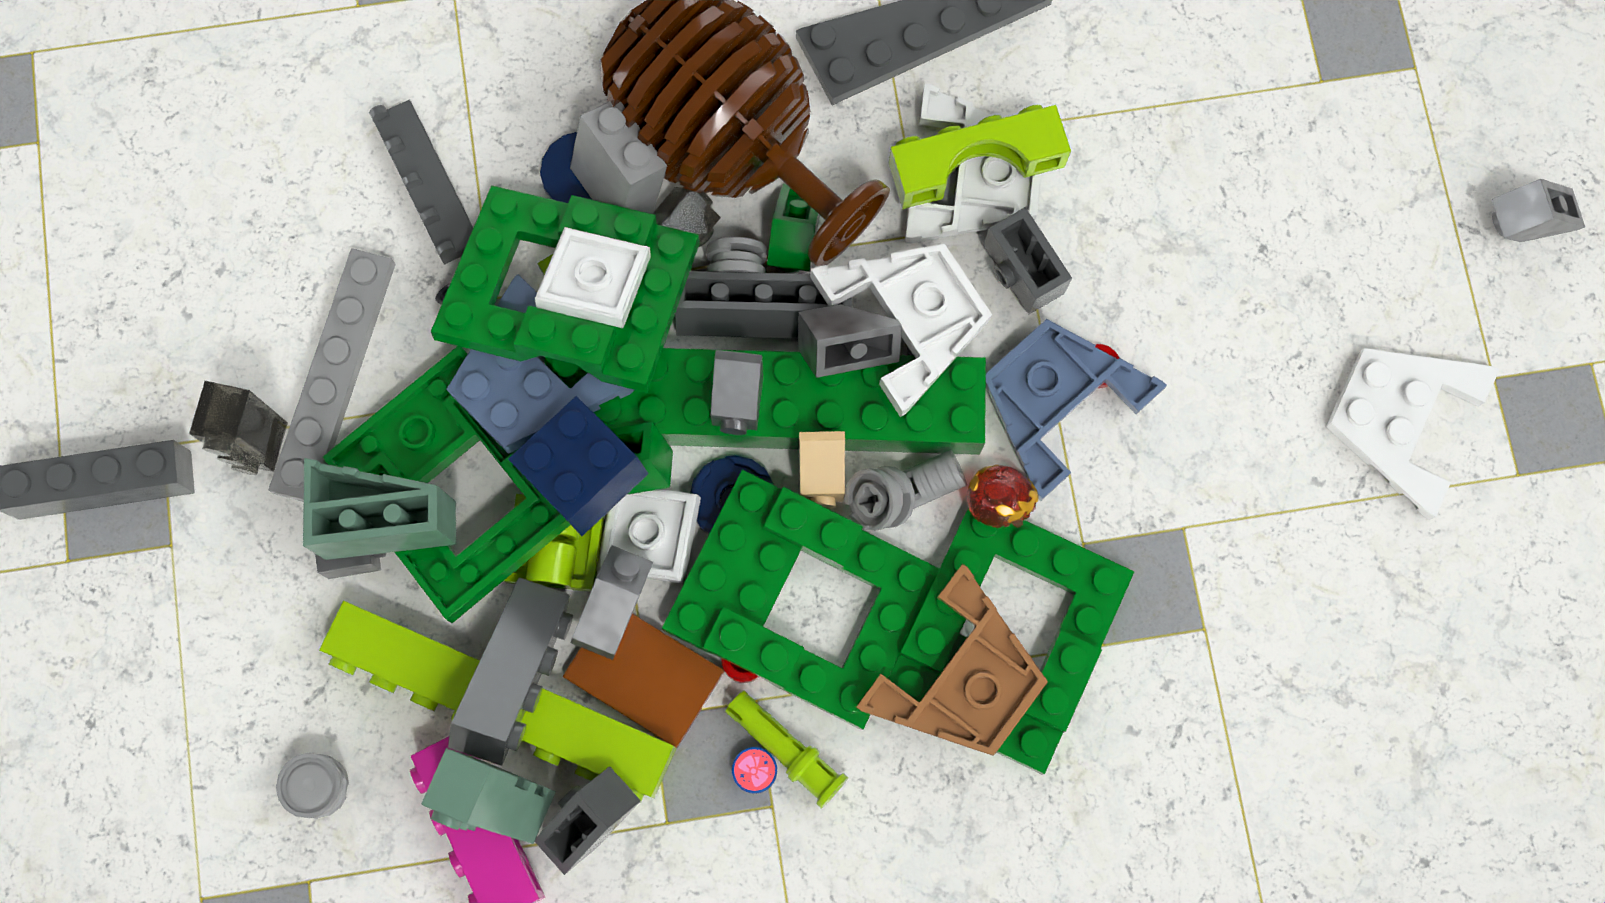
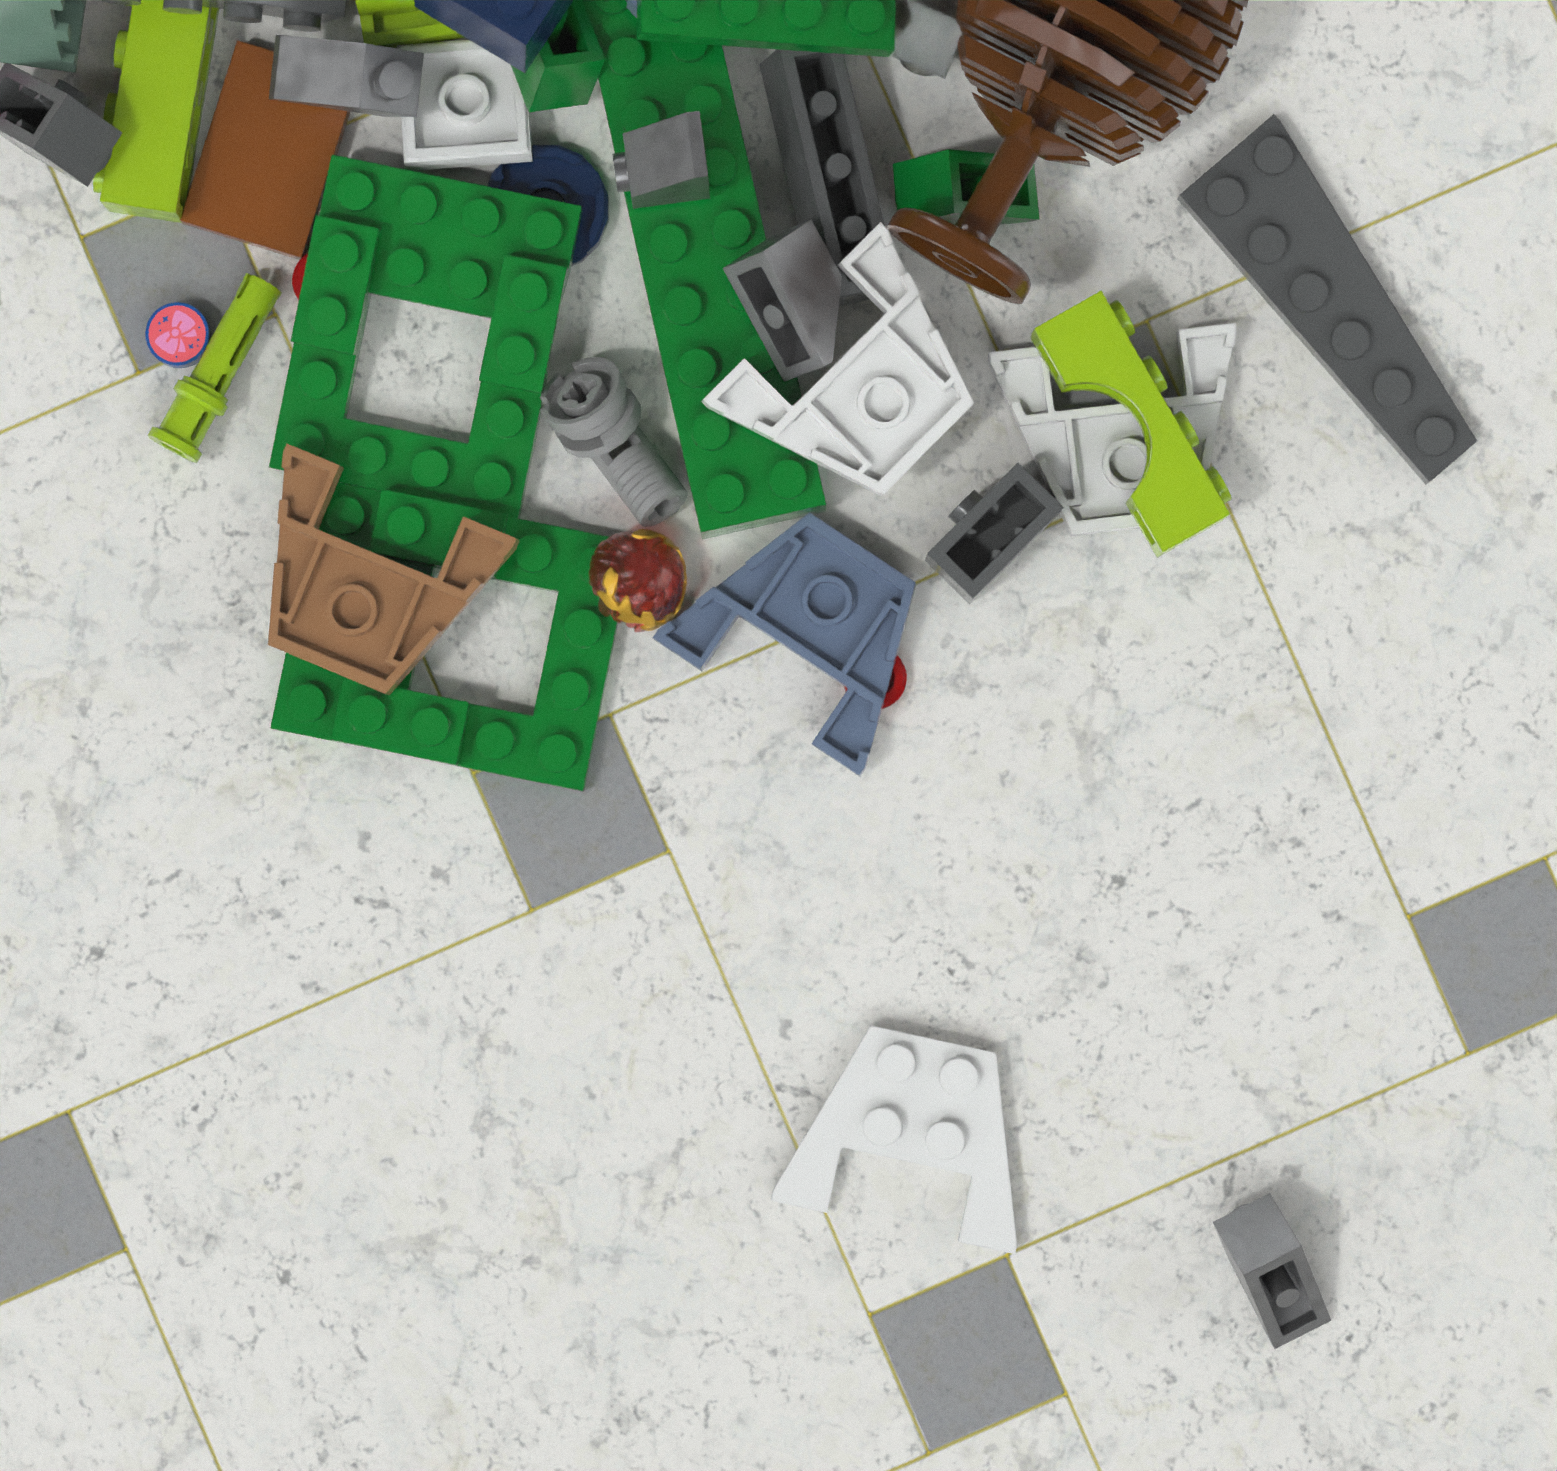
camera: 75 degrees right, 10 degrees up
(736, 255) = (877, 119): light grey wheel -> none
(822, 467) = (608, 316): tan slope -> none

